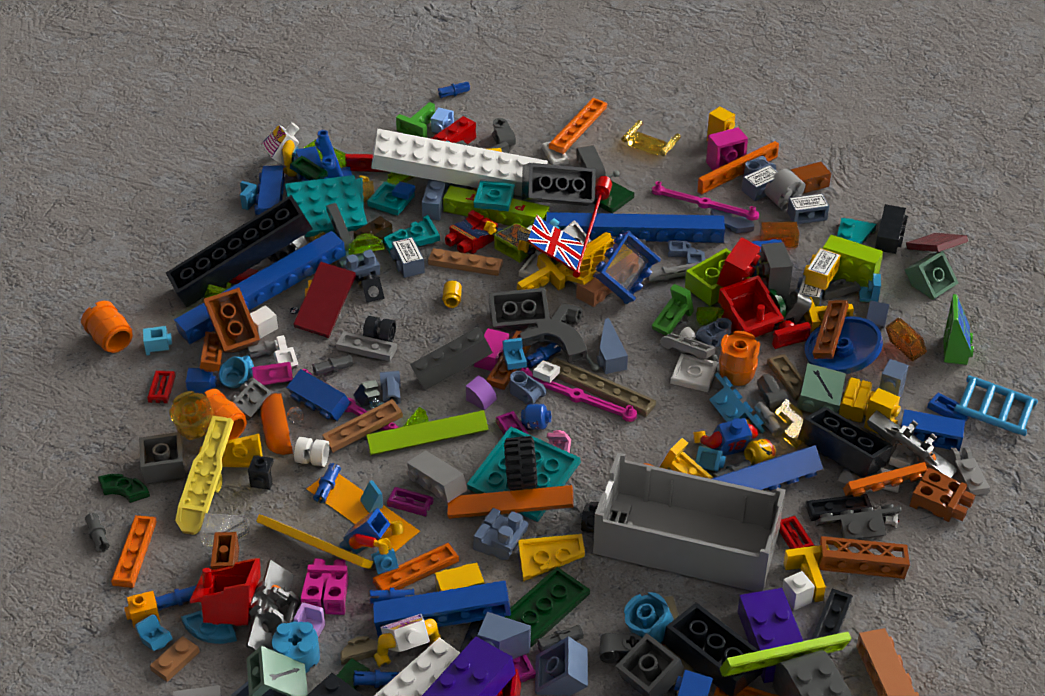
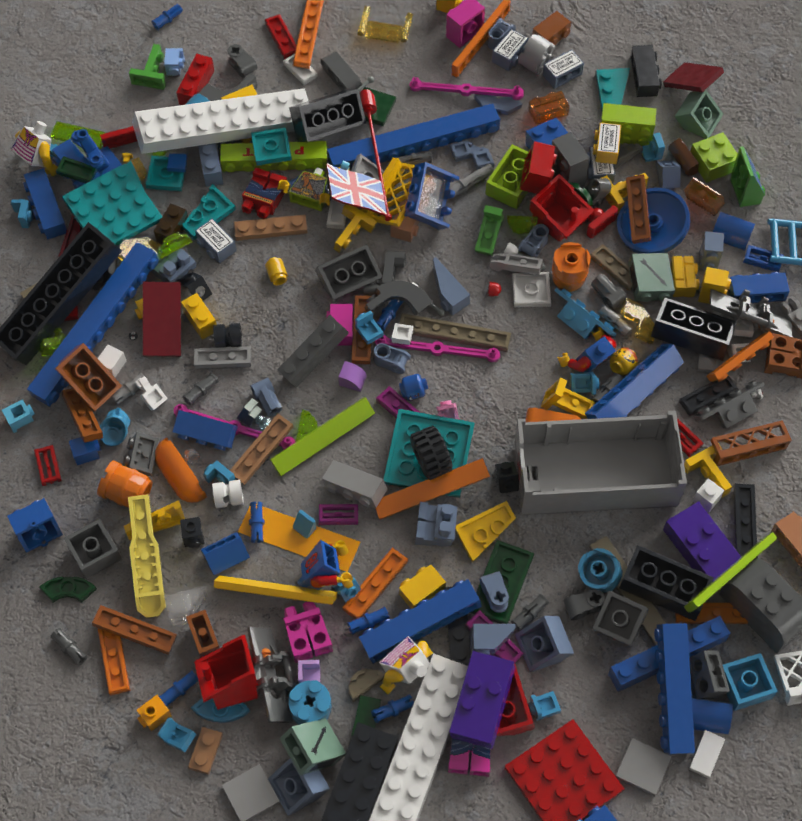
camera: 20 degrees left, 20 degrees up
(120, 422) = (34, 525): none -> blue brick
(163, 534) = (134, 629): none -> dark orange plate
(191, 414) = (96, 503): clear yellow brick -> none
(273, 373) = (149, 418): dark pink plate -> none
(283, 500) = (225, 553): none -> blue brick
(311, 430) = (219, 471): none -> dark azure bracket
(338, 224) = (139, 230): dark grey beam -> none
(360, 306) = (199, 315): none -> yellow brick
(531, 604) = (494, 589): none -> sand blue piece
(550, 124) = (281, 35): none -> red tile
(655, 361) = (494, 289): none -> red hinge
(900, 304) = (684, 157): none -> reddish brown brick
(926, 376) = (735, 230): none -> blue brick
(929, 311) = (715, 157): none -> lime brick

